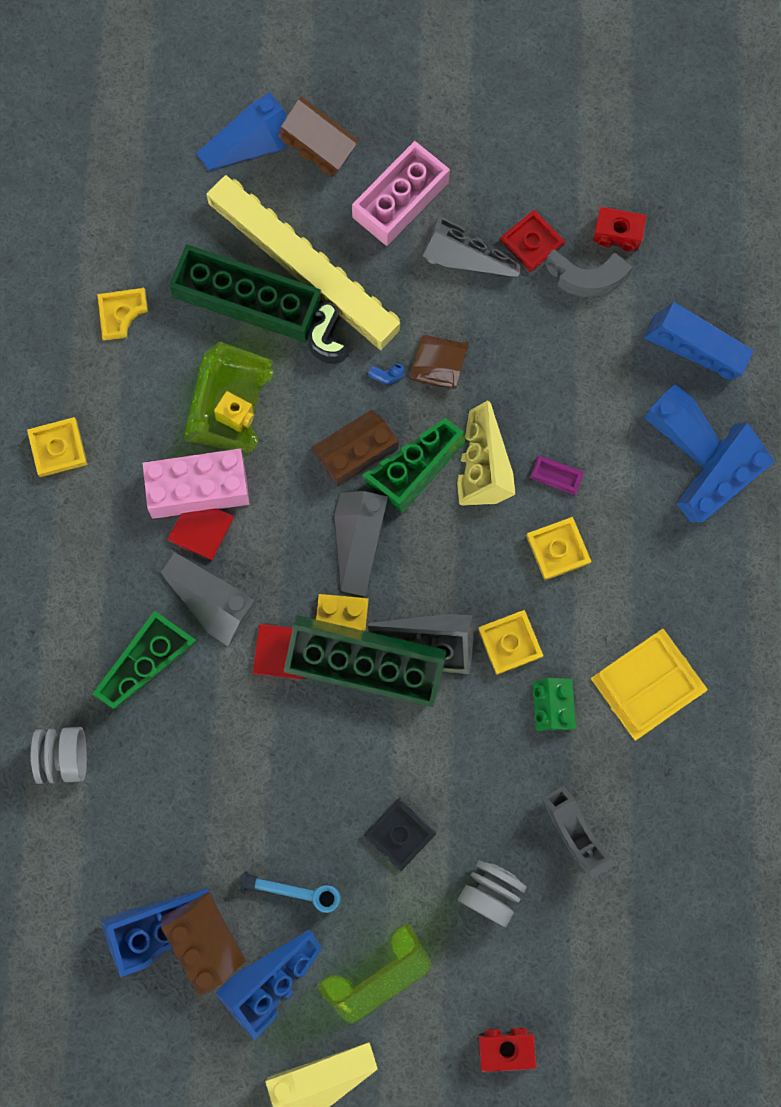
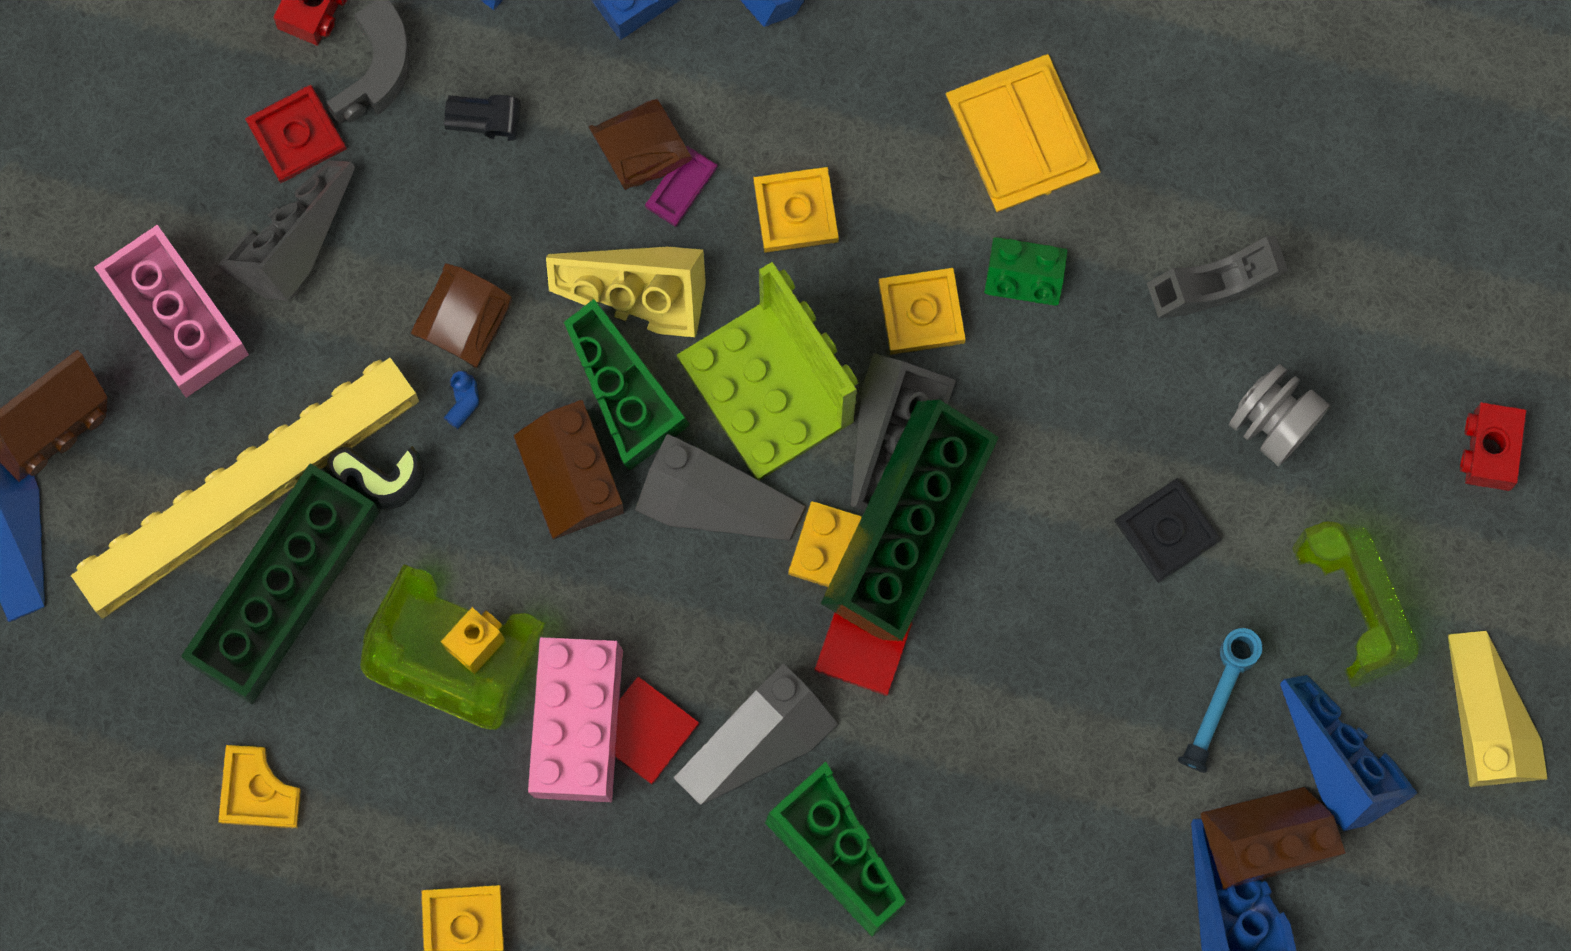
camera: 75 degrees left, 0 degrees up
(438, 554) = (773, 378): none -> lime bracket
(571, 348) = (488, 116): none -> black piece
(575, 441) = (641, 144): none -> reddish brown slope

